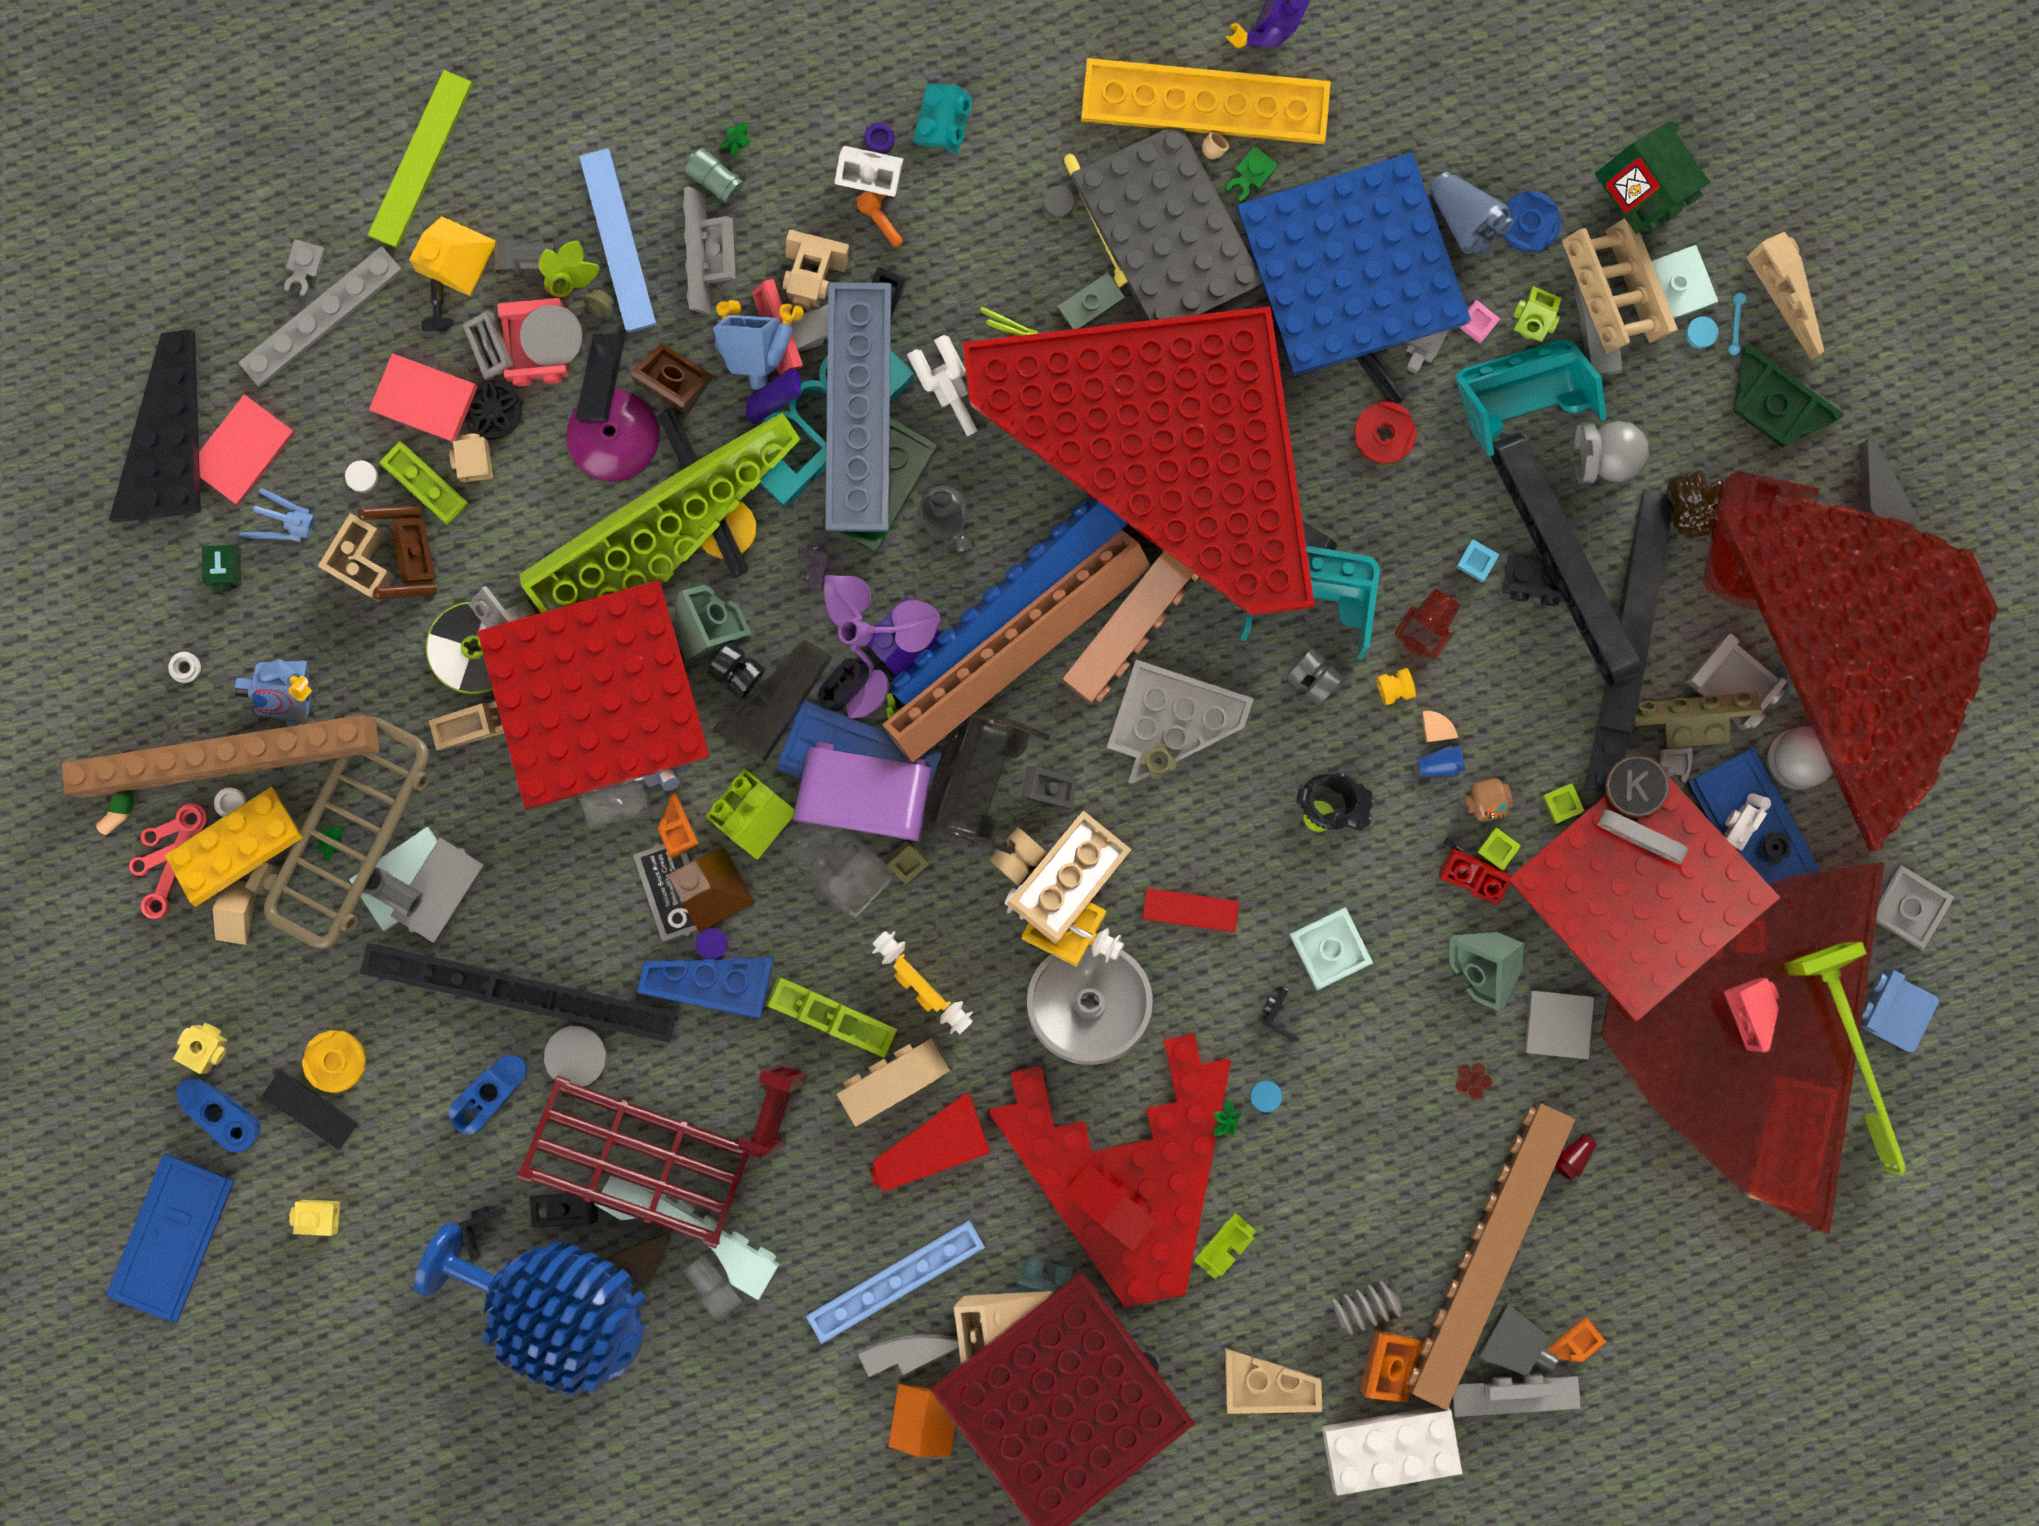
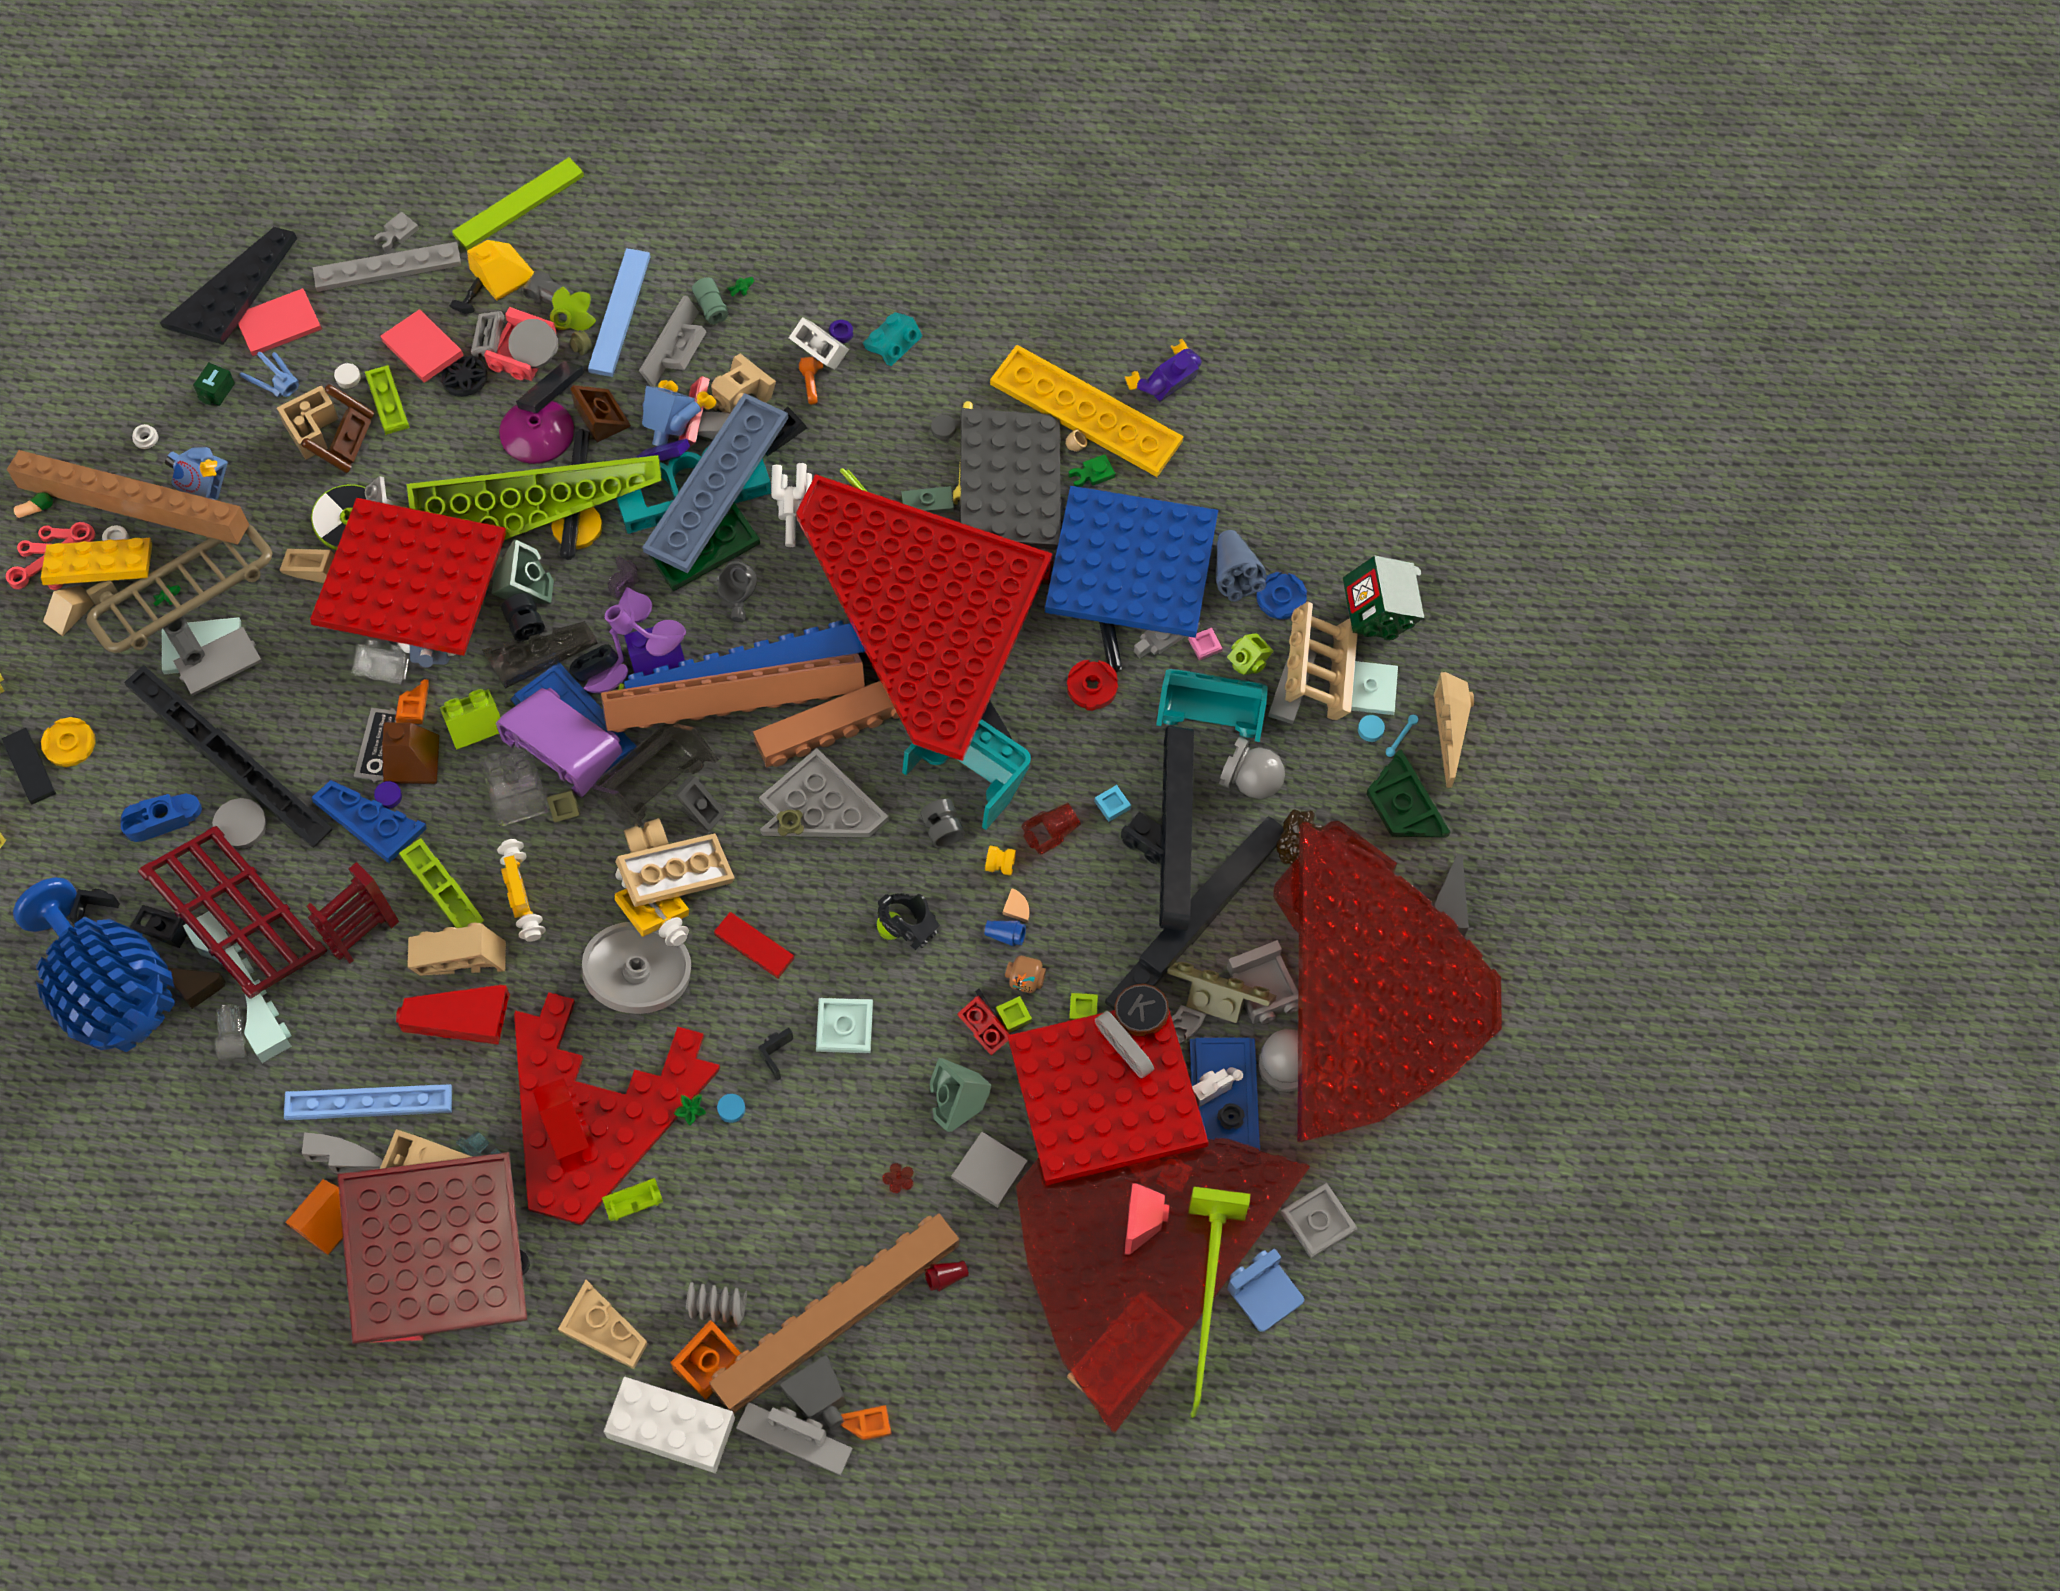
camera: 30 degrees right, 20 degrees down
(471, 458) = (429, 397): tan brick -> none

